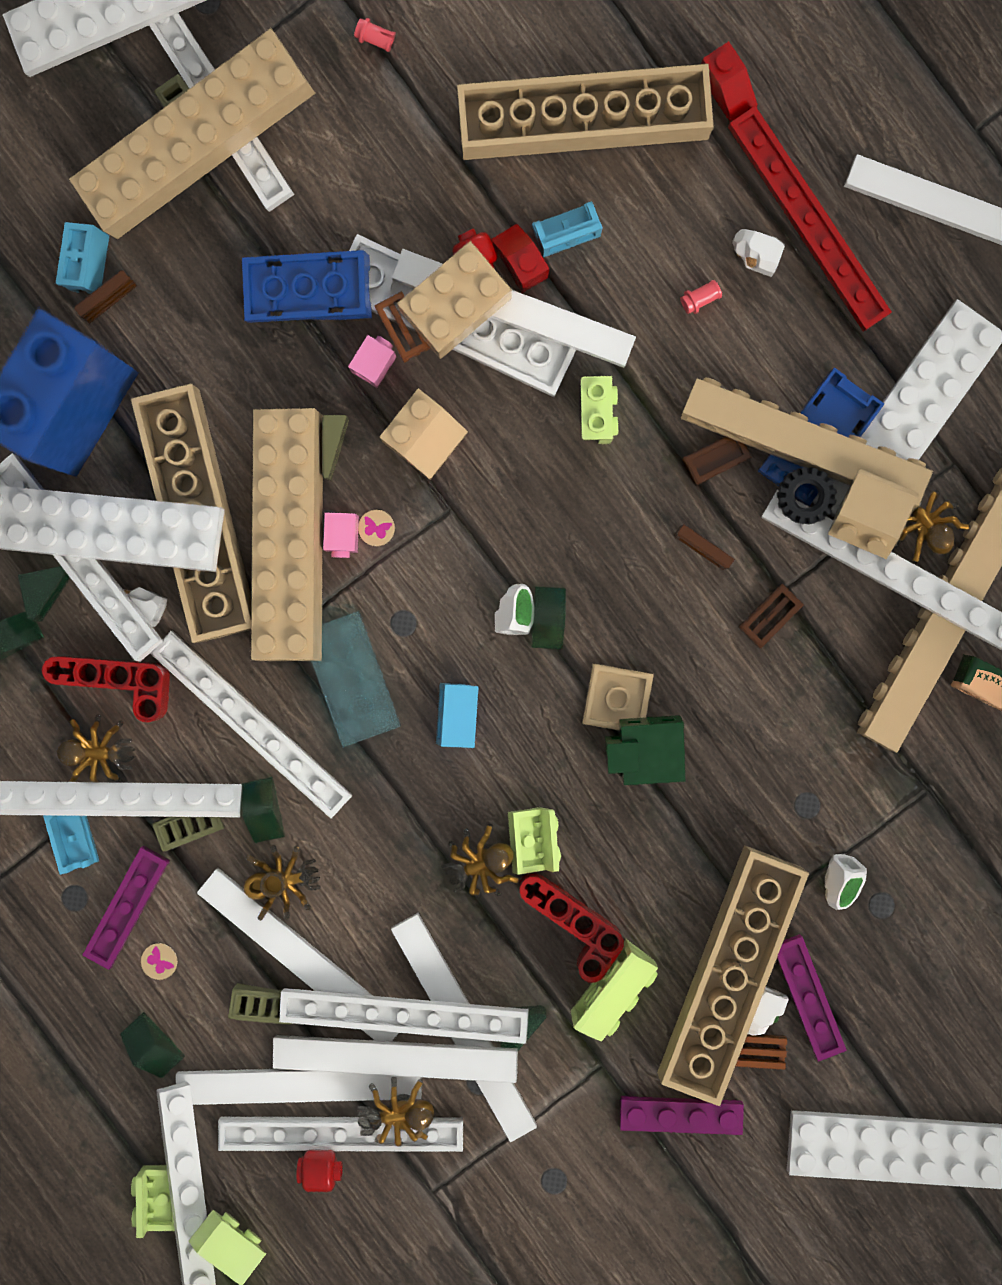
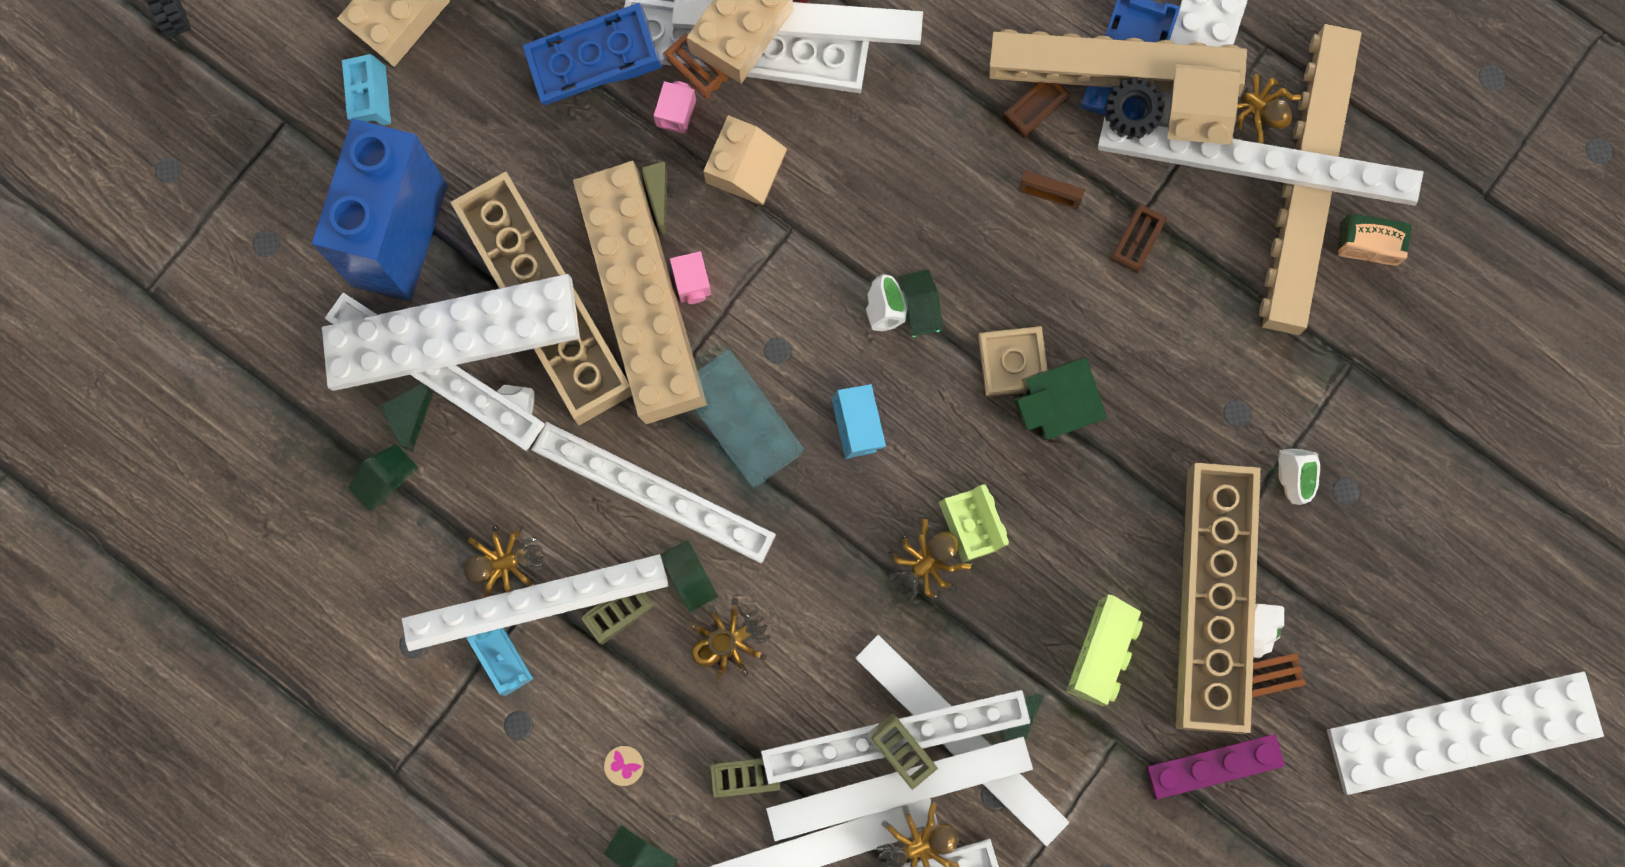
camera: 10 degrees left, 10 degrees down
(105, 296) = (404, 111): reddish brown tile -> none
(107, 679) = (493, 486): red beam -> none
(126, 907) = (575, 715): magenta plate -> none
(281, 941) = (748, 706): white tile -> none
(376, 527) = (723, 265): tan sticker -> none
(394, 1015) = (882, 729): none -> olive slope
(567, 918) = (1033, 594): red beam -> none
(597, 409) = (907, 89): yellowish green bracket -> none
(809, 999) = (1305, 604): magenta plate -> none

